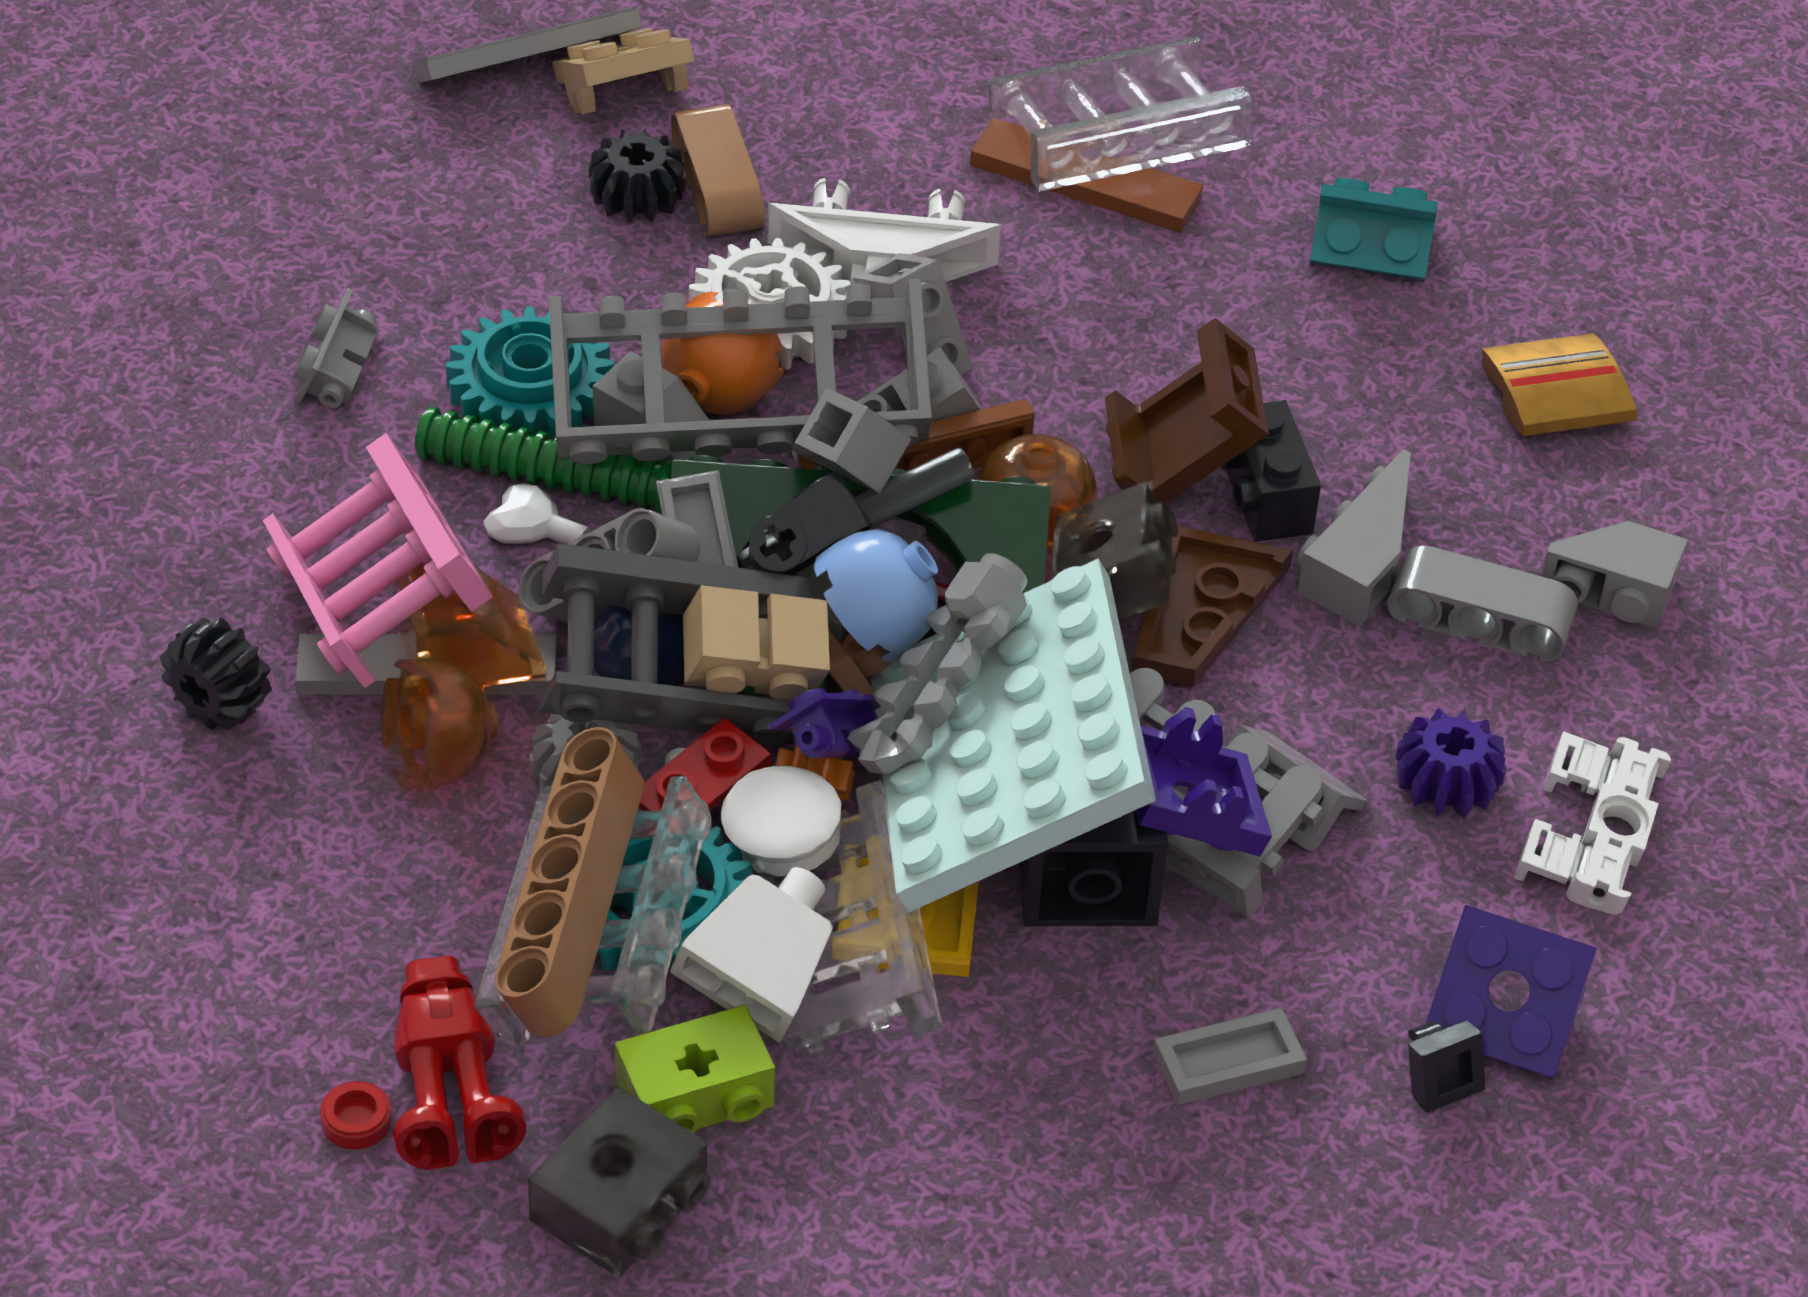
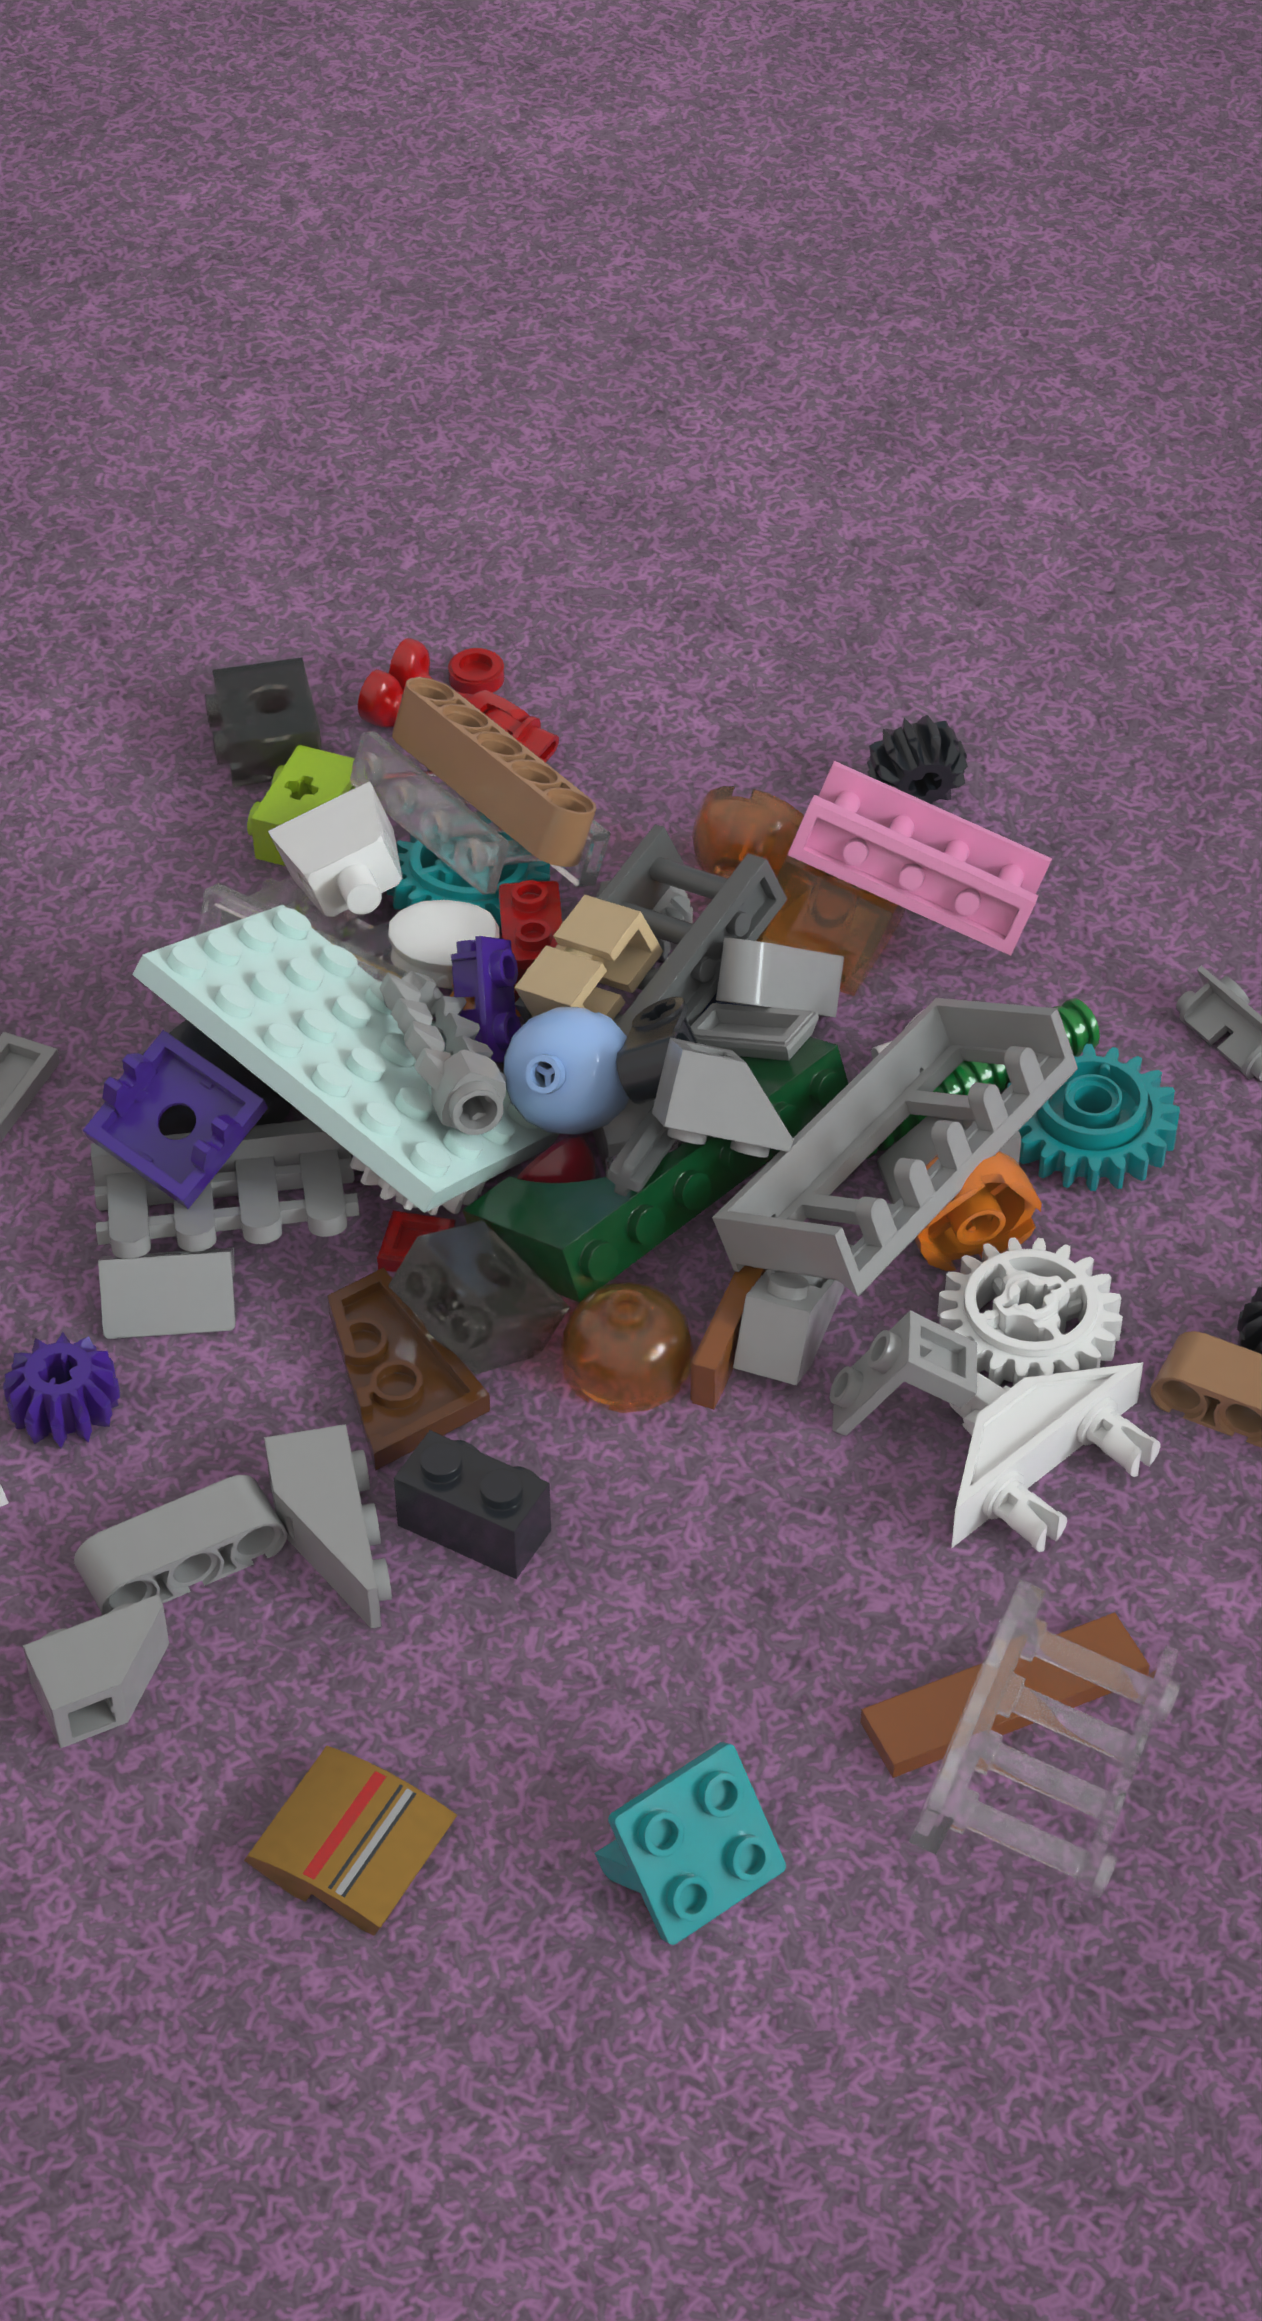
camera: 135 degrees right, 0 degrees up
(1192, 421) = (573, 1453): reddish brown panel -> none

